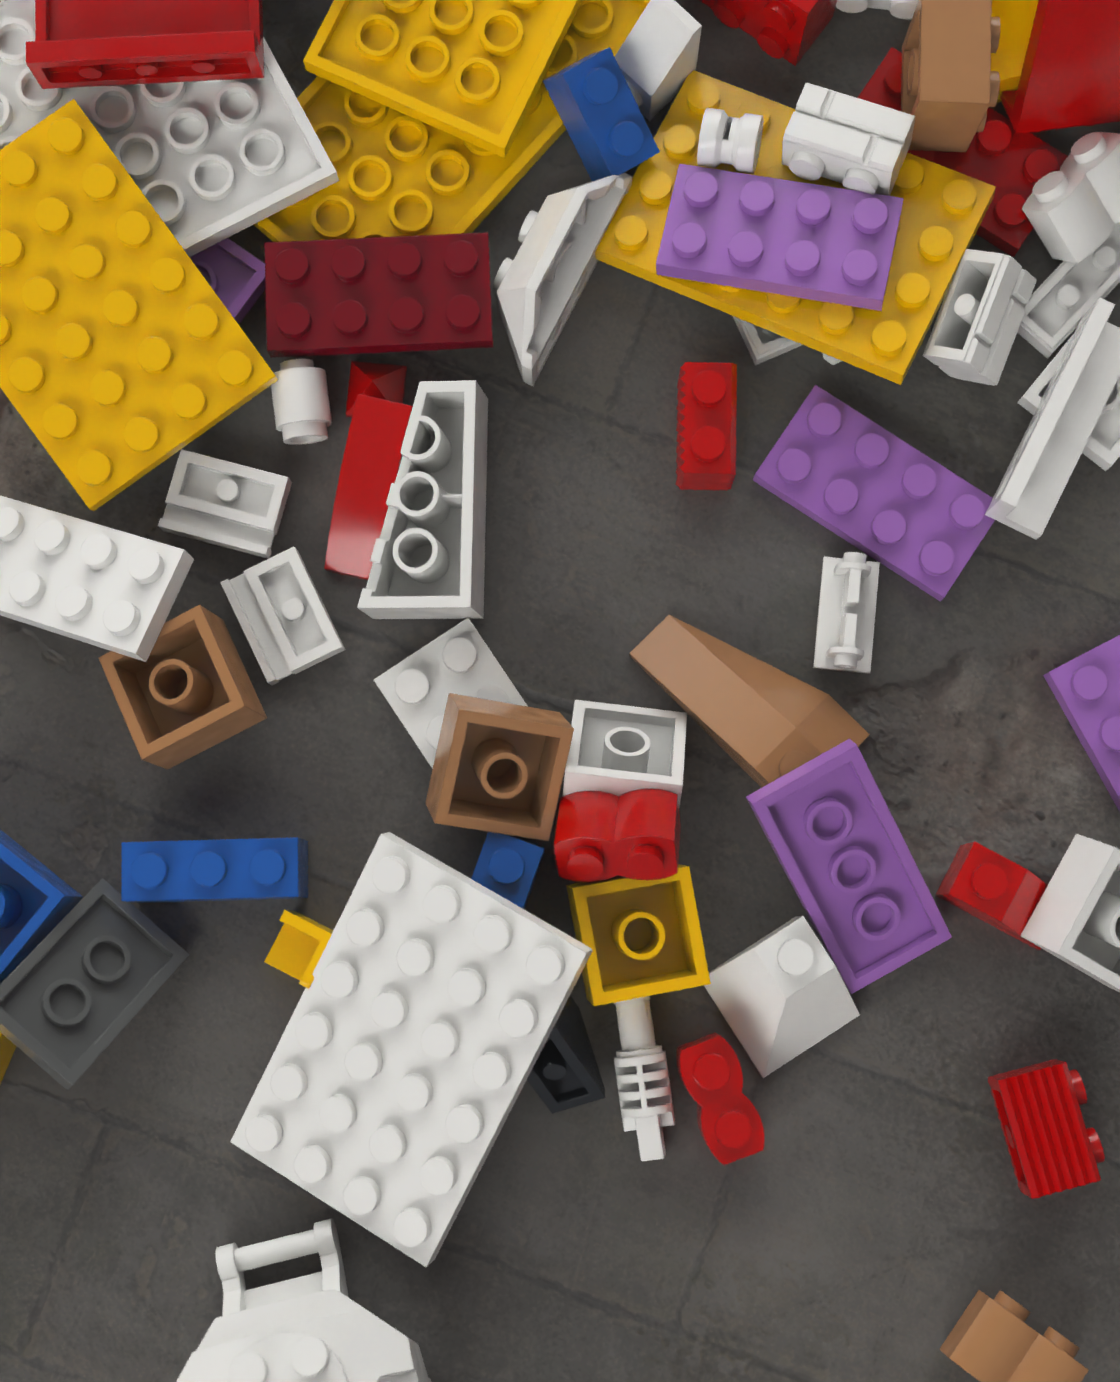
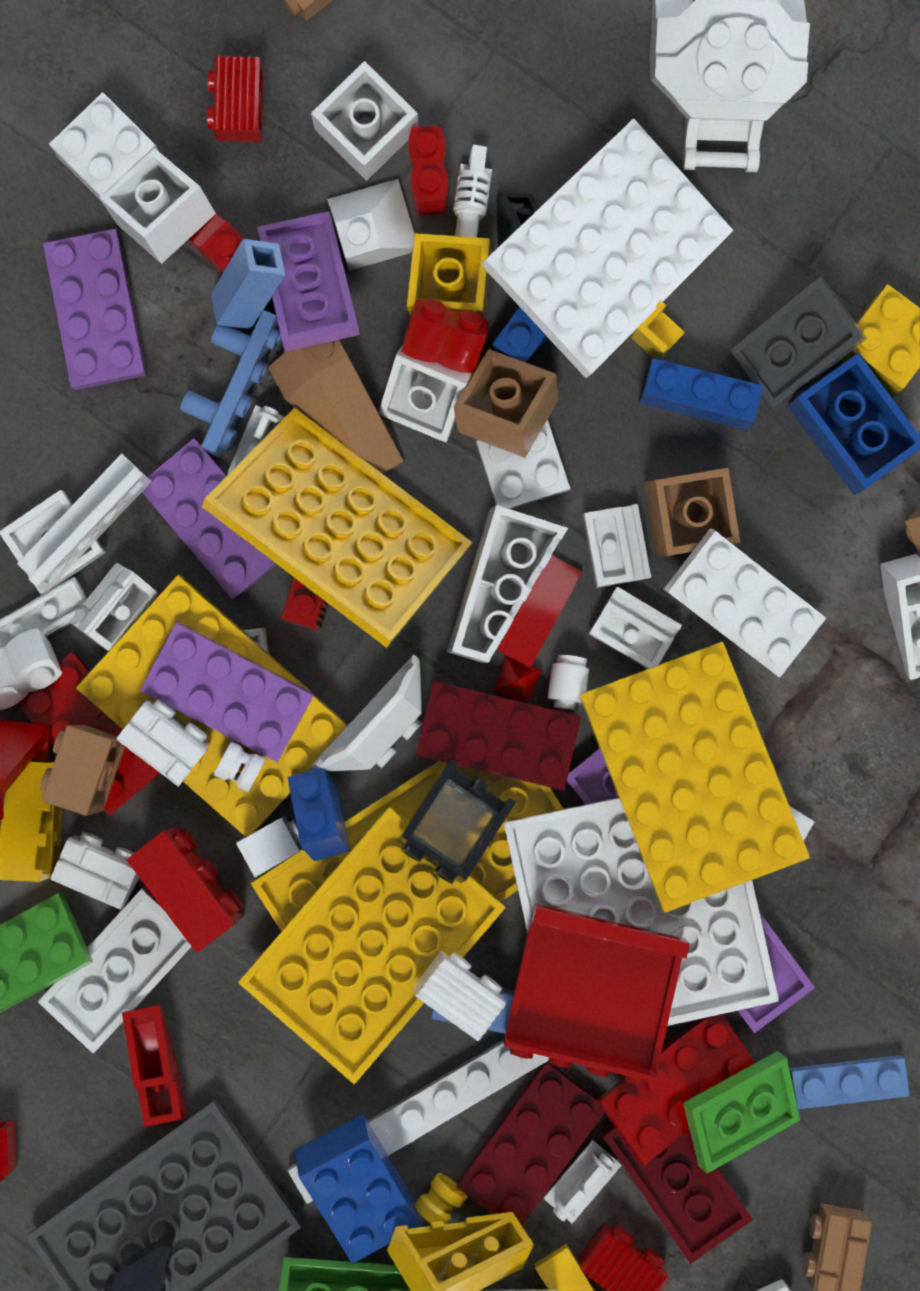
camera: 170 degrees left, 5 degrees up
(403, 145) = (454, 824): none -> window
(693, 514) = (338, 526): none -> yellow plate
(839, 1146) = (365, 120): none -> white brick
(899, 665) = (236, 401): none -> medium blue plate
(937, 832) = (247, 284): none -> medium blue brick

